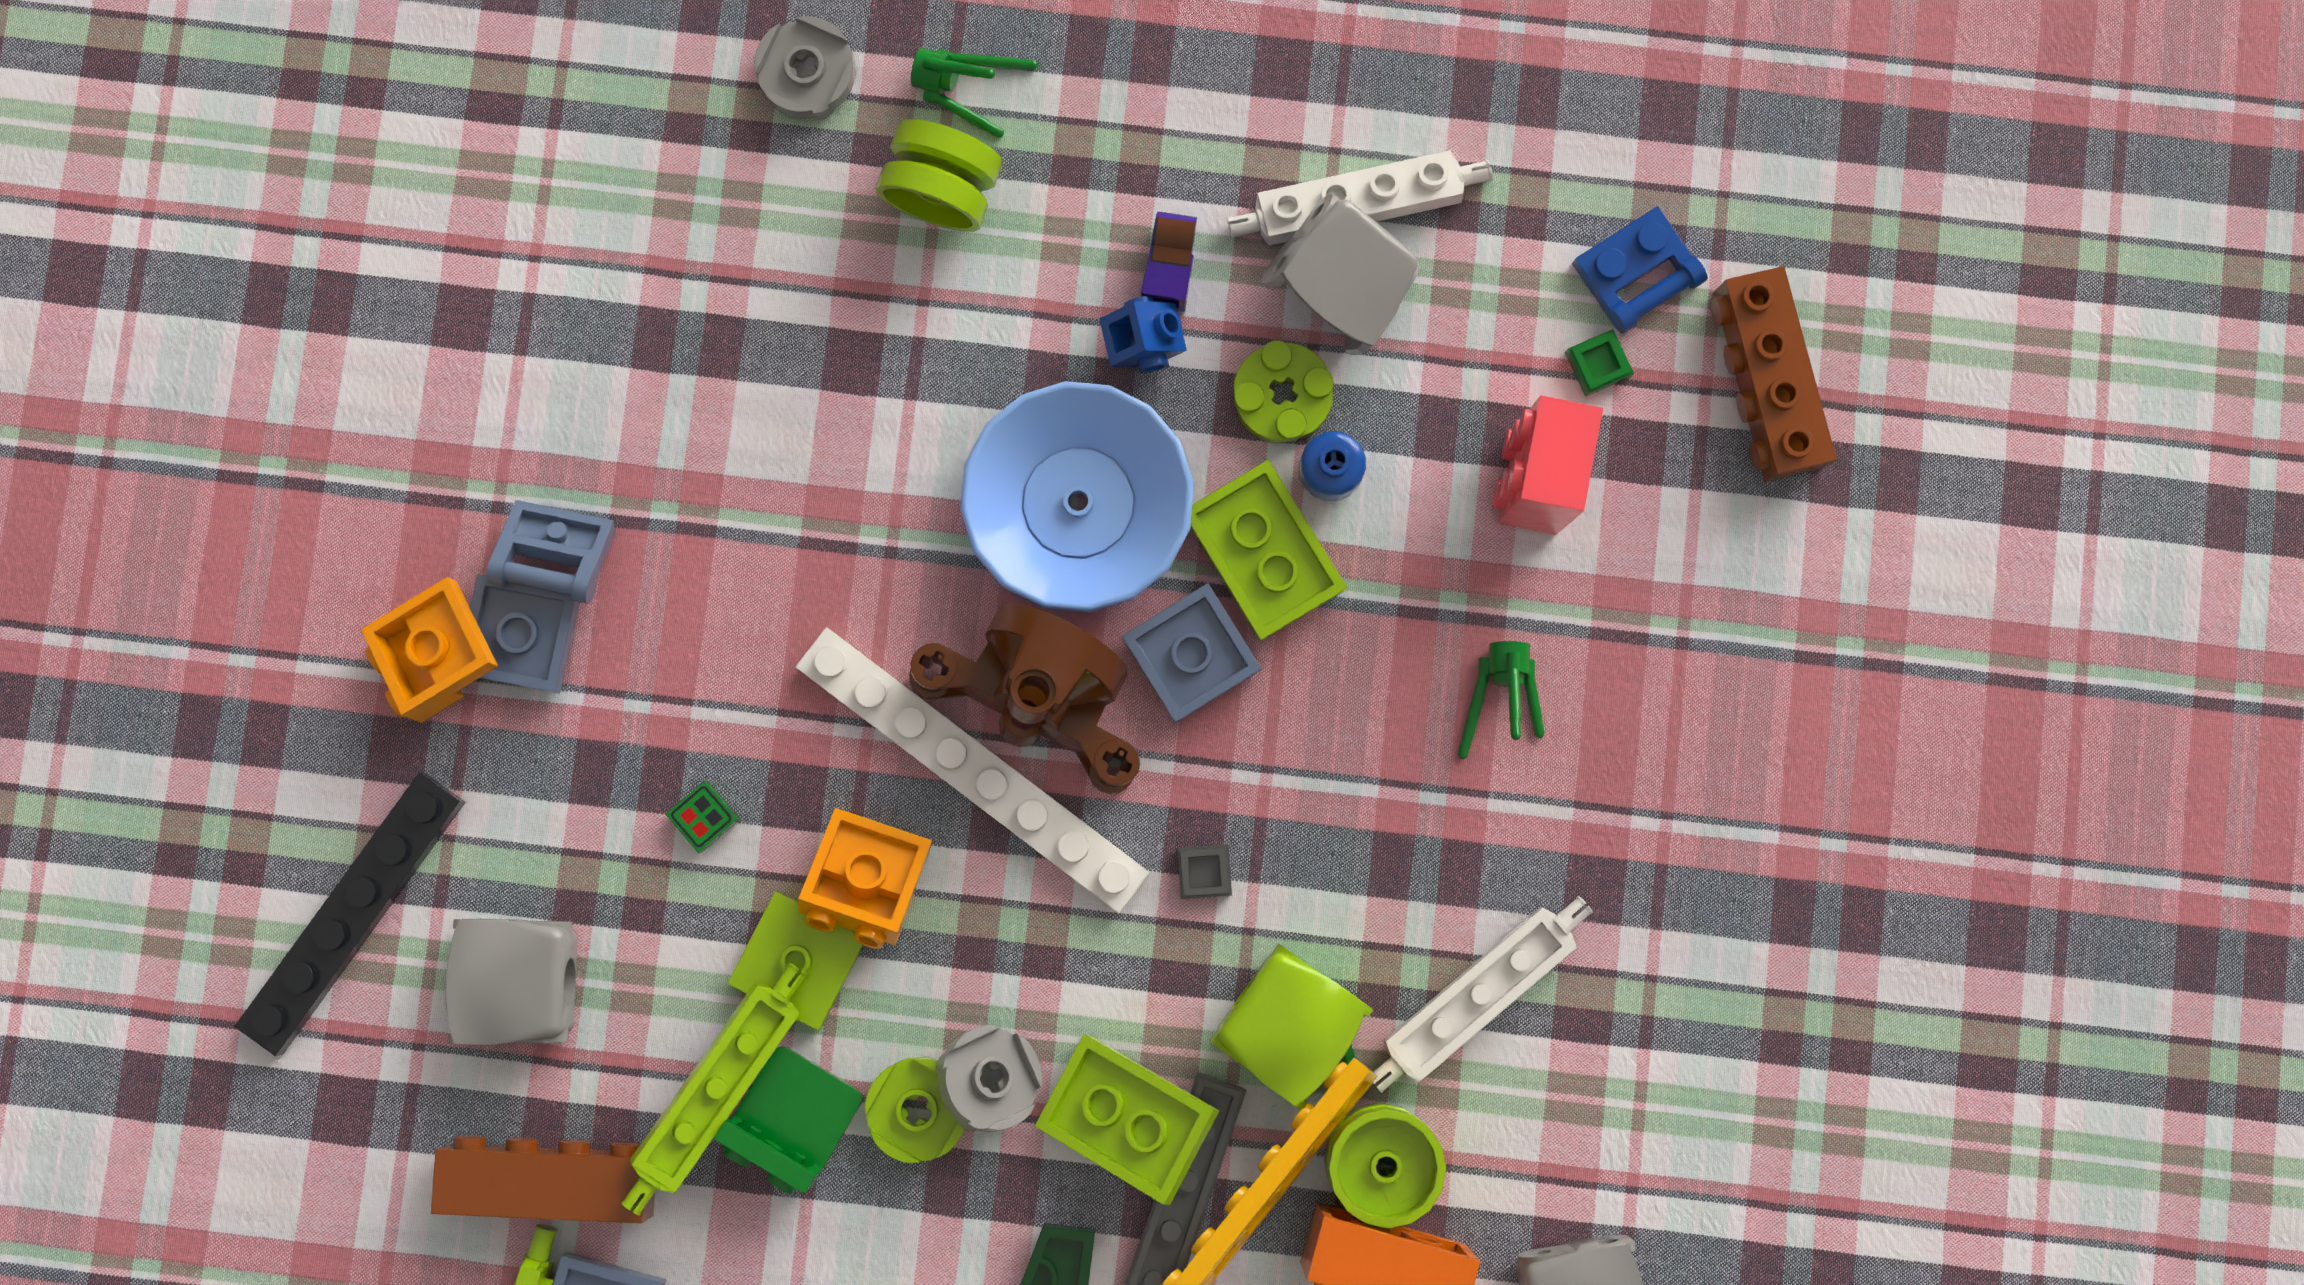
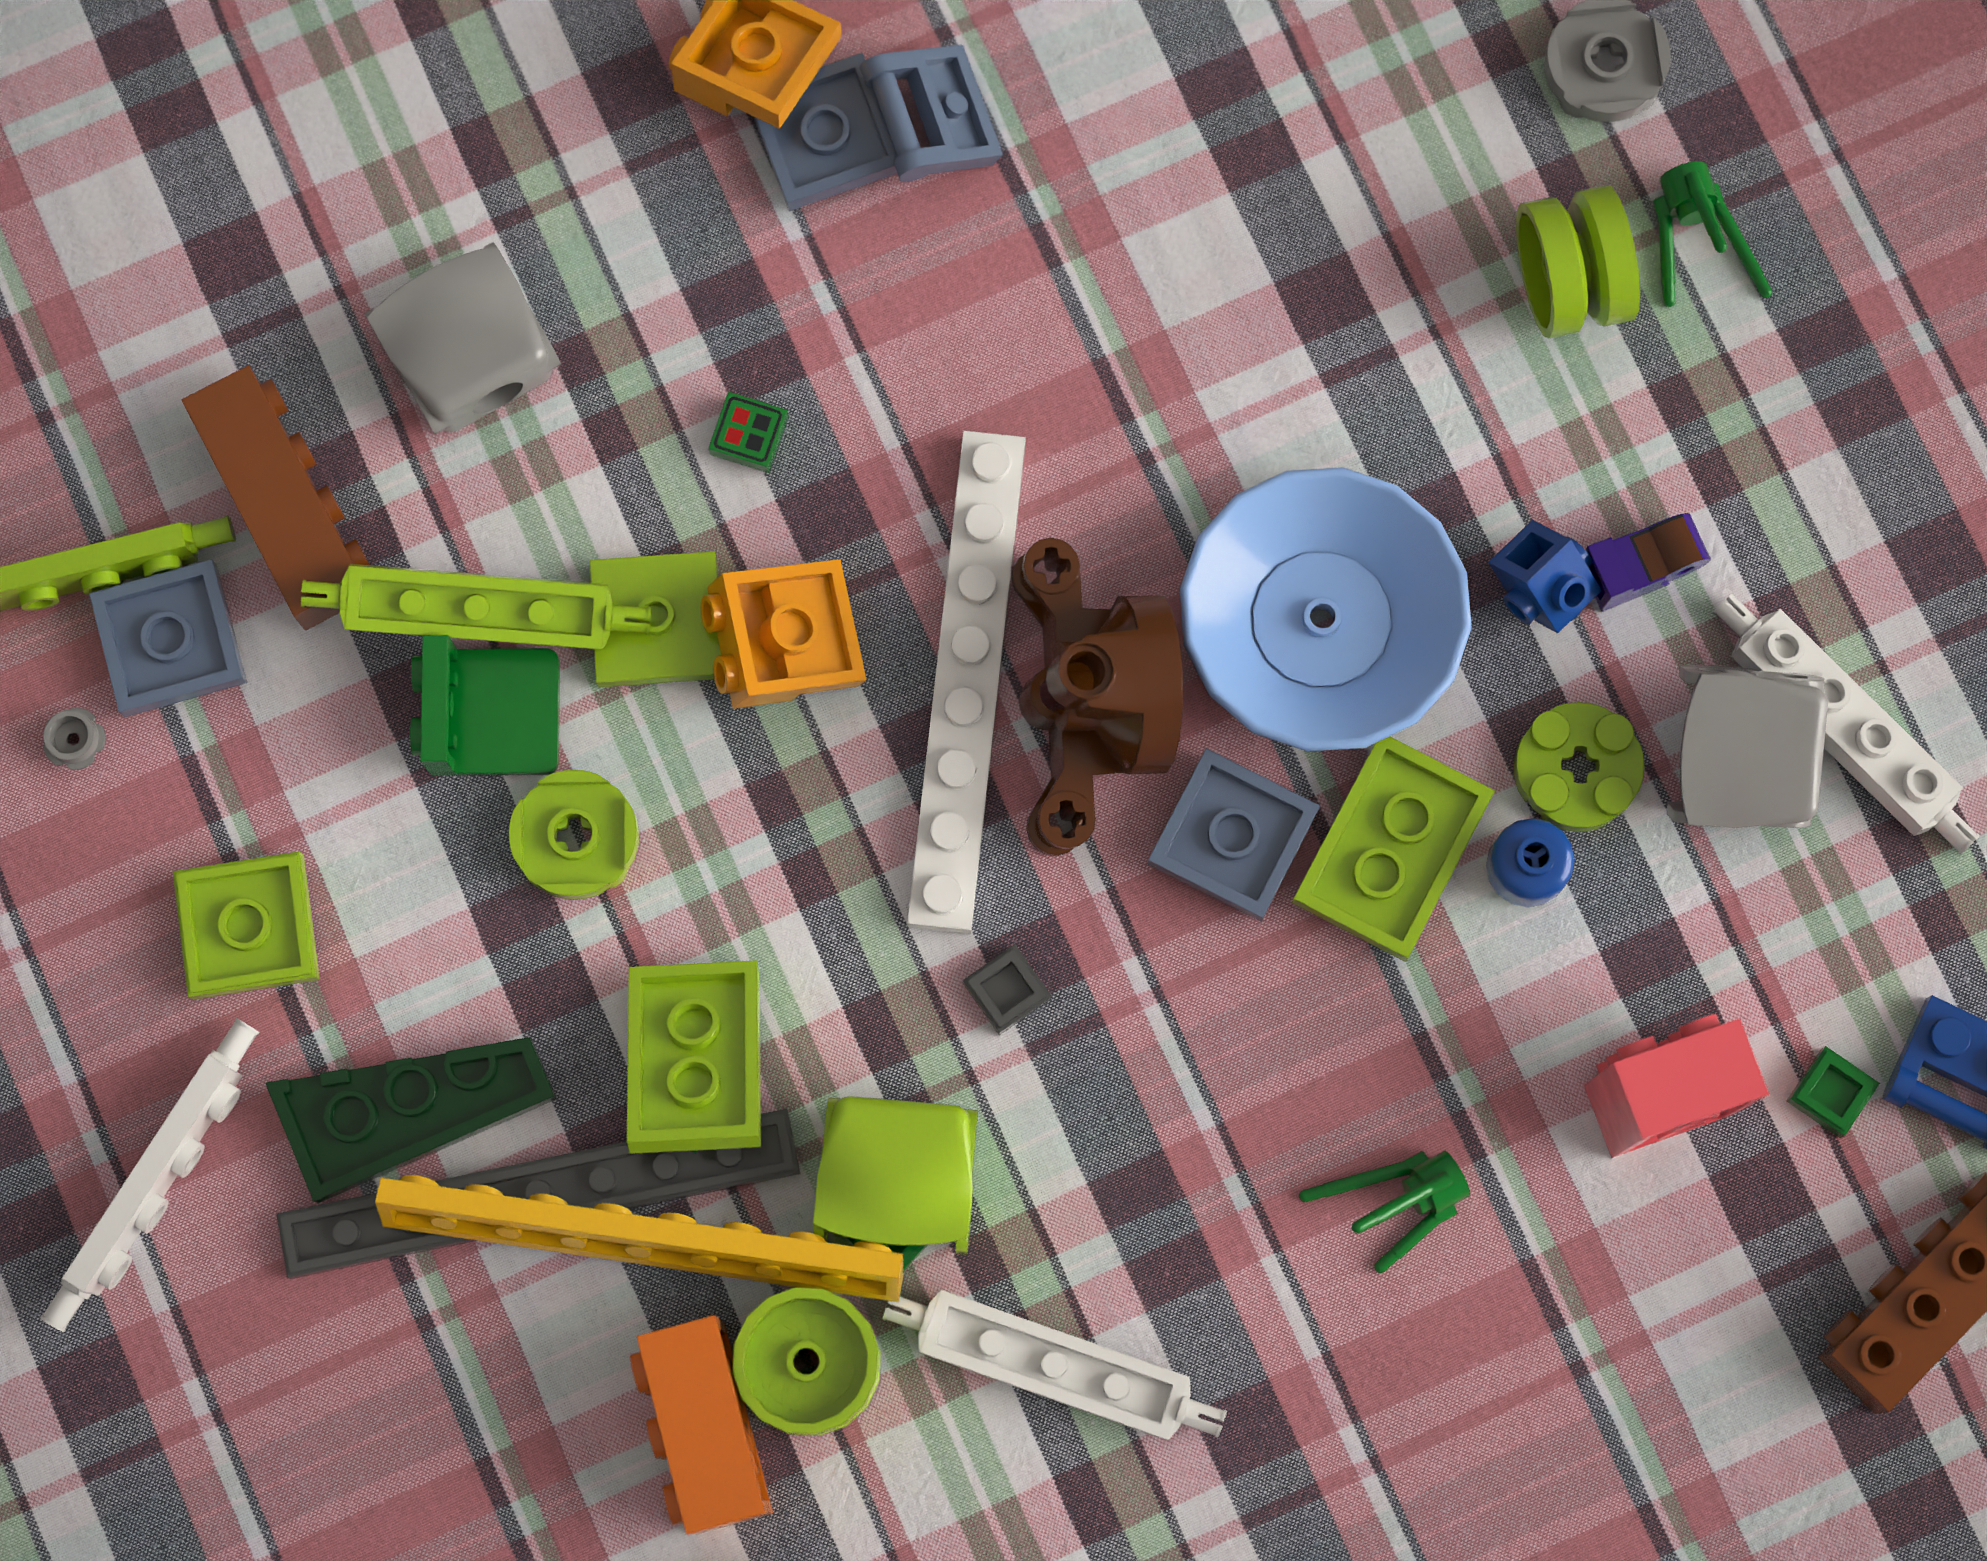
camera: 60 degrees right, 5 degrees down
(349, 914) = (436, 141): black plate -> none
(961, 1086) = (614, 888): light grey plate -> none

